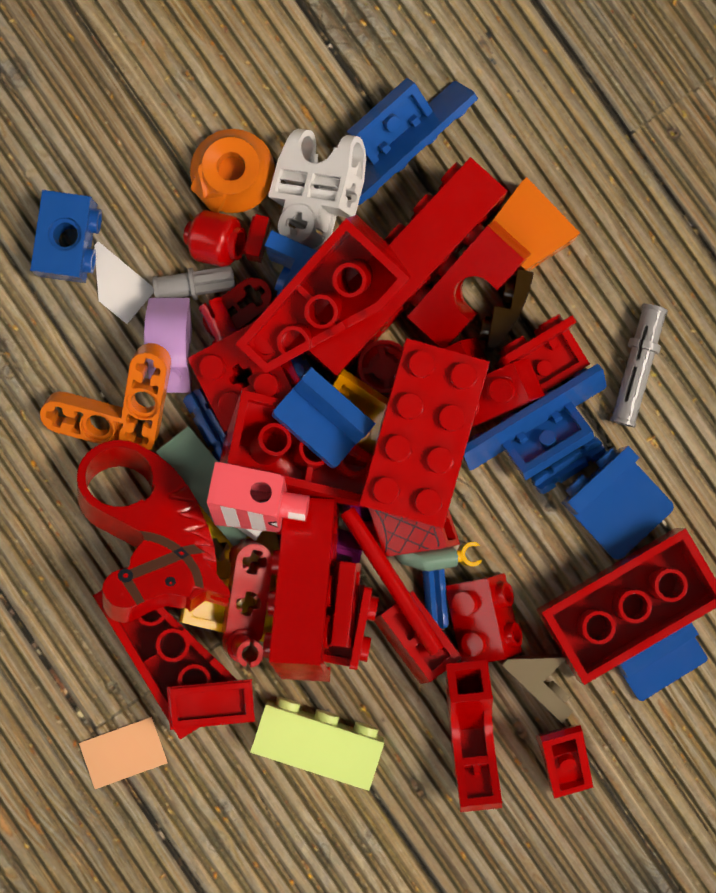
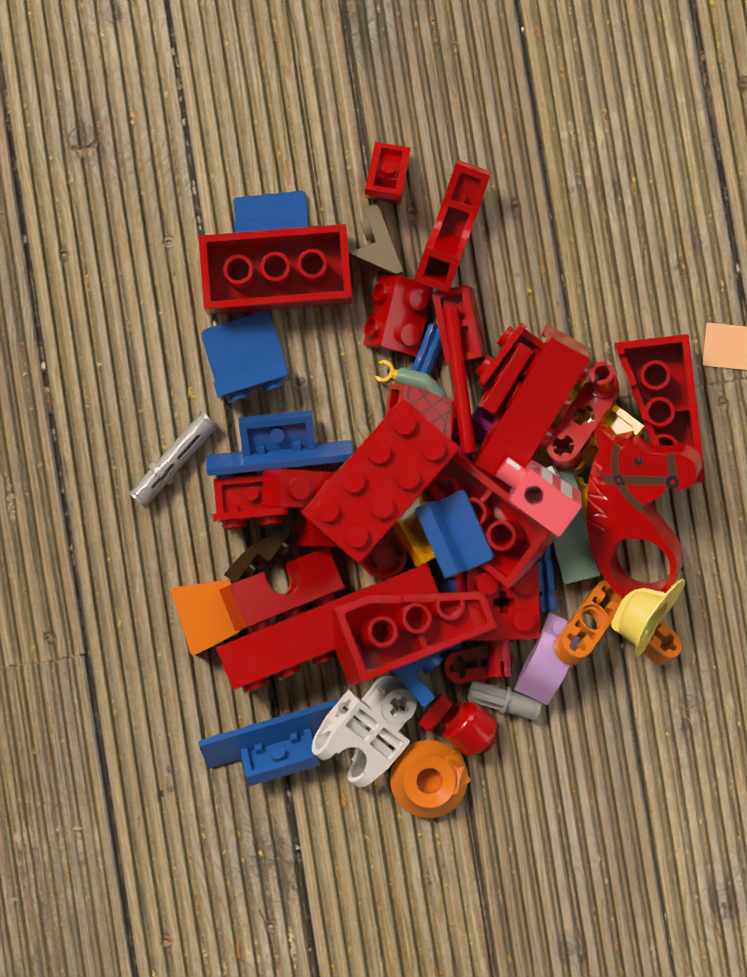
camera: 150 degrees left, 0 degrees up
(56, 214) = (591, 811): blue brick -> none
(96, 430) = (642, 612): none -> light yellow piece
(119, 286) = (566, 729): white sticker -> none
(210, 704) = (651, 350): red tile -> none
(318, 743) = (578, 280): yellowish green brick -> none
(568, 466) = (270, 405): blue axle -> none

